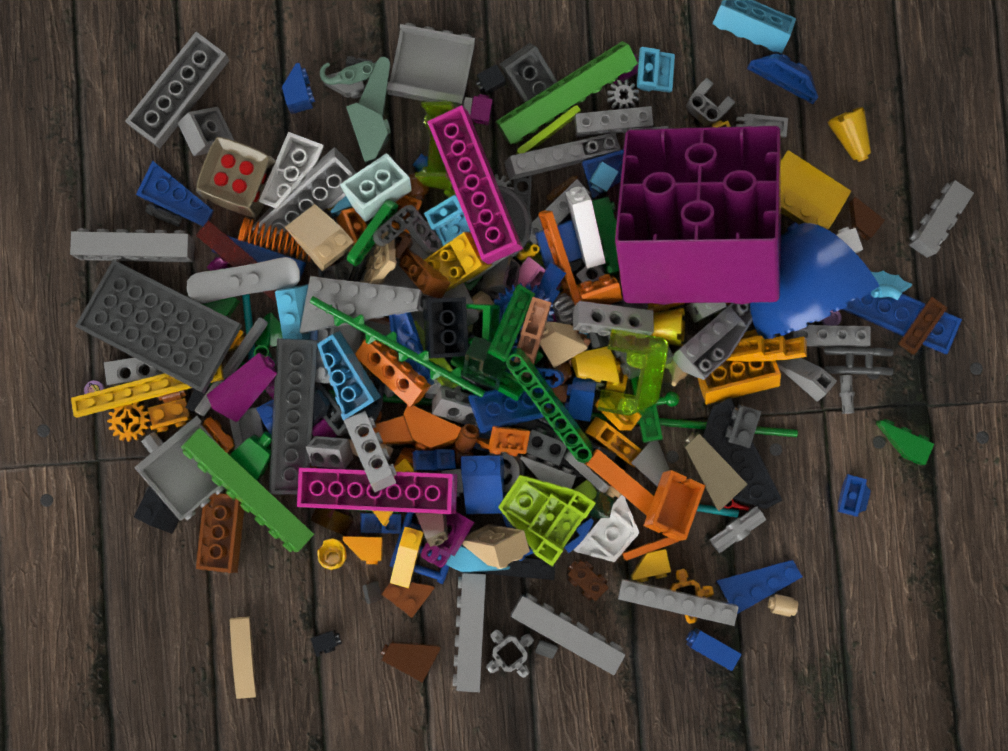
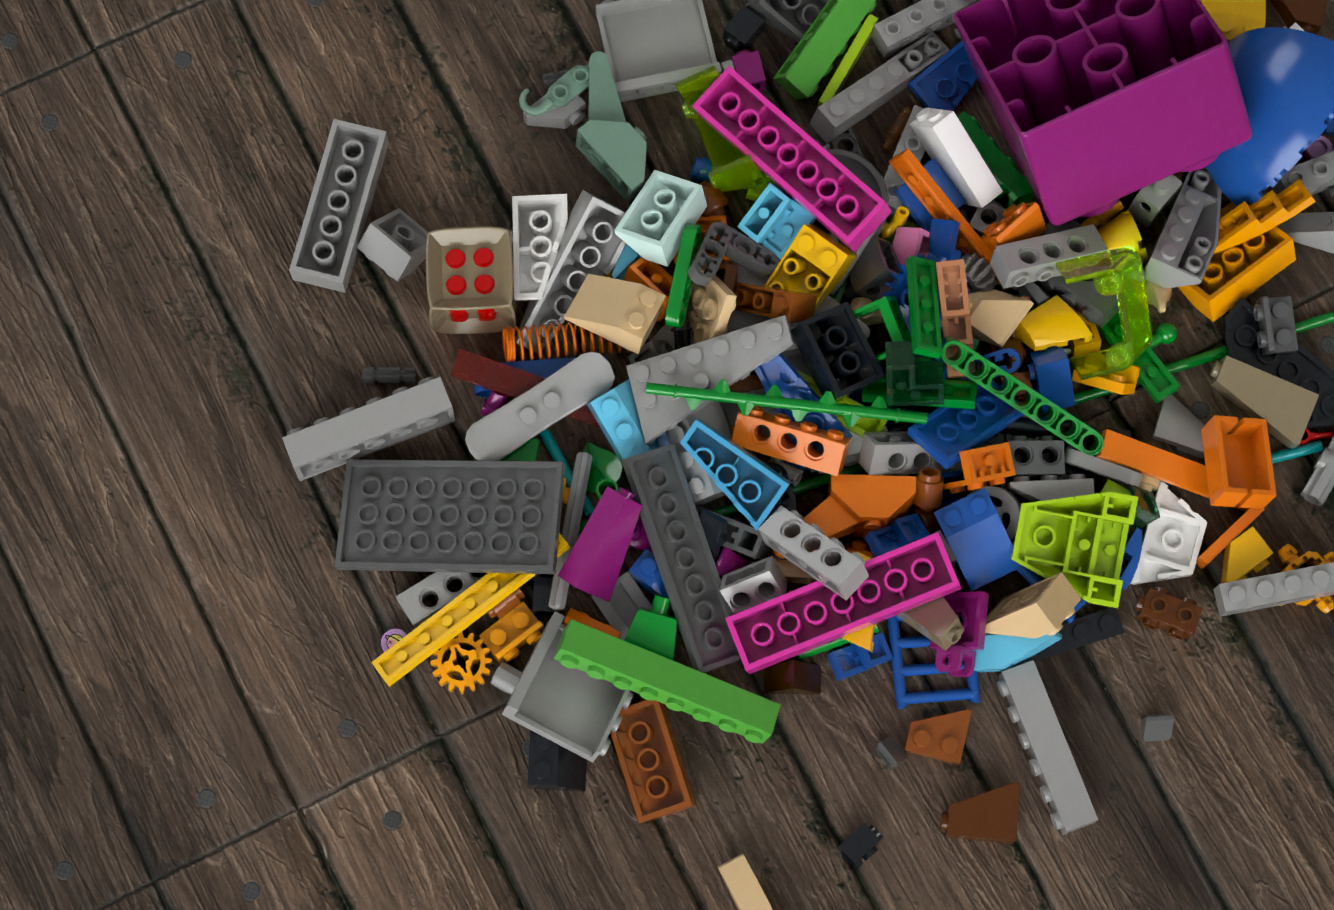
camera: 20 degrees left, 10 degrees down
(171, 195) = (392, 345): blue wing -> none
(295, 90) = (501, 143): blue slope -> none
(332, 554) = (815, 722): yellow hair -> none
(366, 548) = (856, 696): light orange slope -> none
(407, 557) = (918, 681): yellow slope -> none
(493, 666) = (1121, 735): light grey piece -> none
(567, 634) = (1178, 691): light grey brick -> none
(603, 177) = (946, 89): medium azure brick -> none
(613, 440) = (1105, 411): light orange slope -> none

